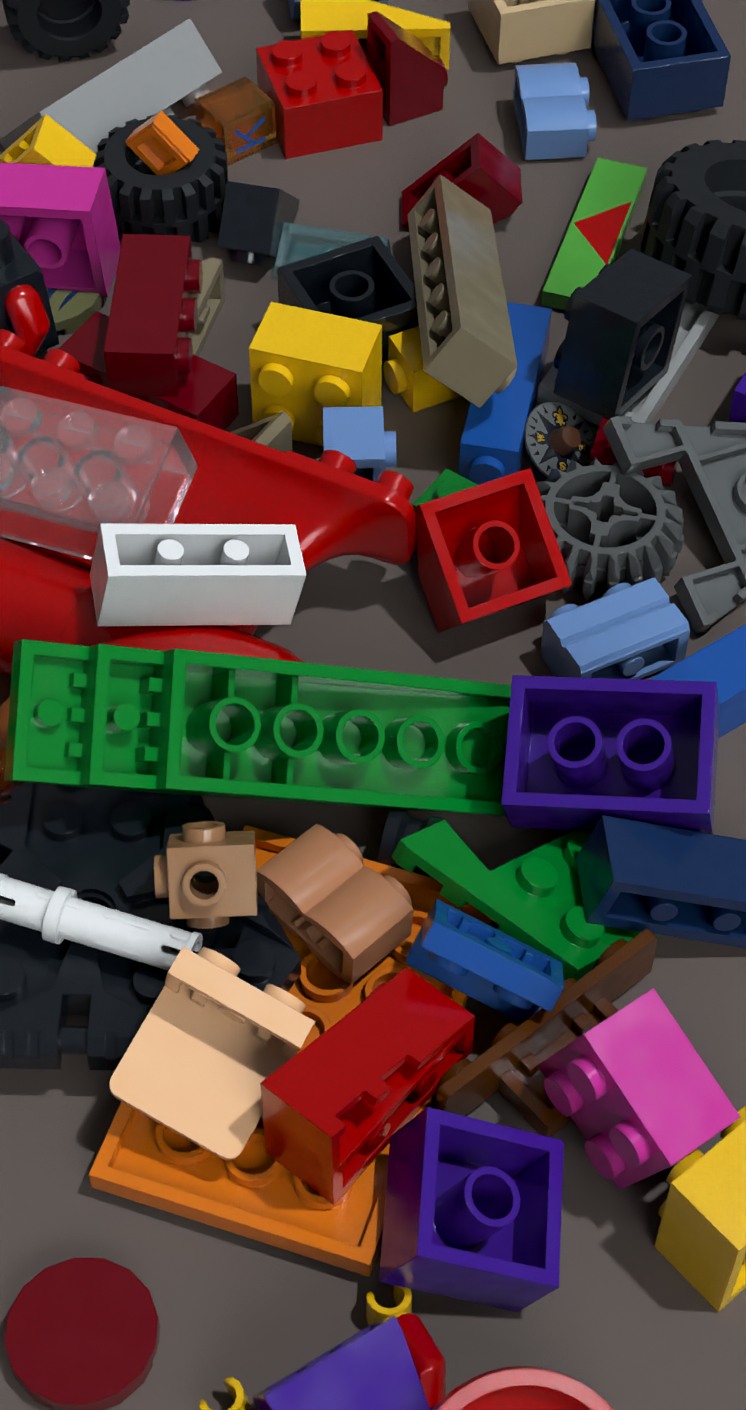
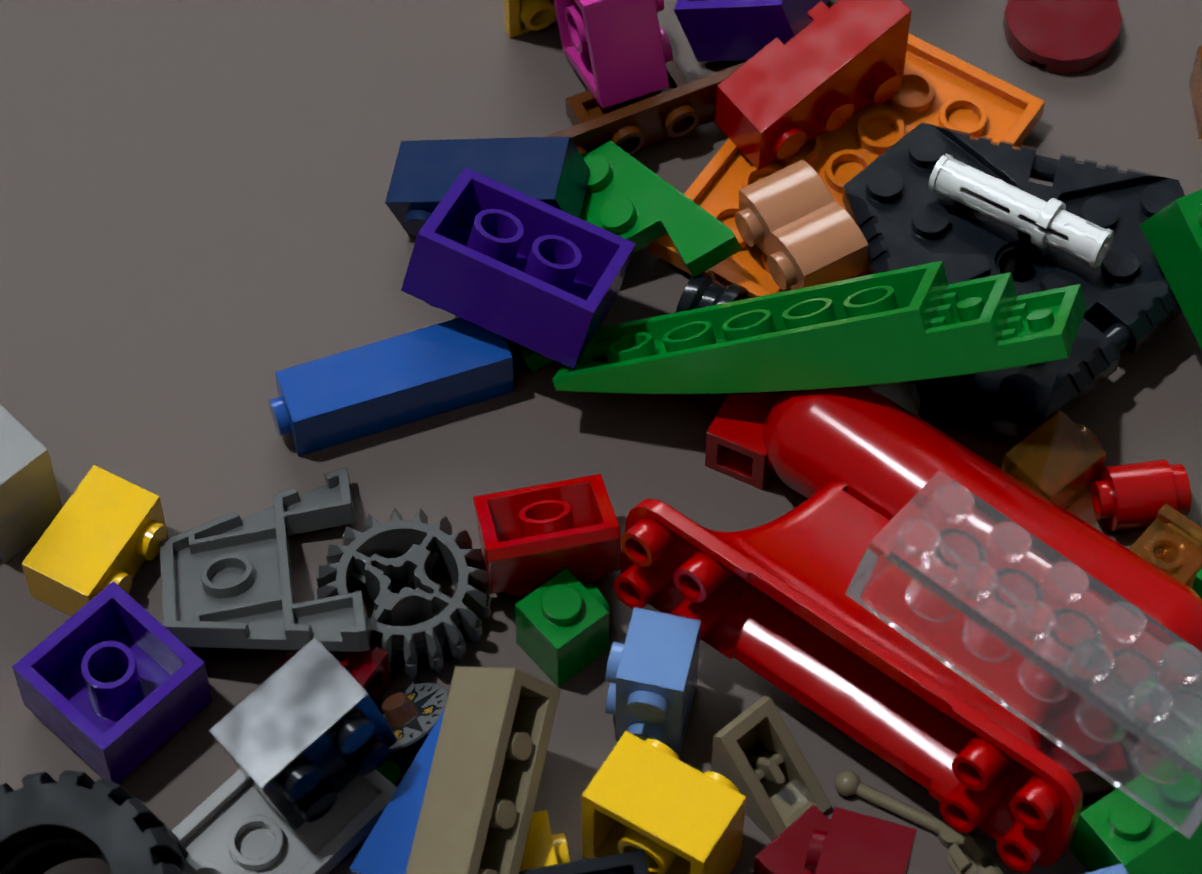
camera: 165 degrees left, 5 degrees up
(196, 574) = (869, 451): white brick -> none
(208, 1051) = (930, 96): light nougat bracket -> none
(212, 899) = (897, 223): medium nougat brick -> none
(485, 963) = (687, 134): blue bracket -> none
(616, 636) = (444, 461): medium blue brick -> none

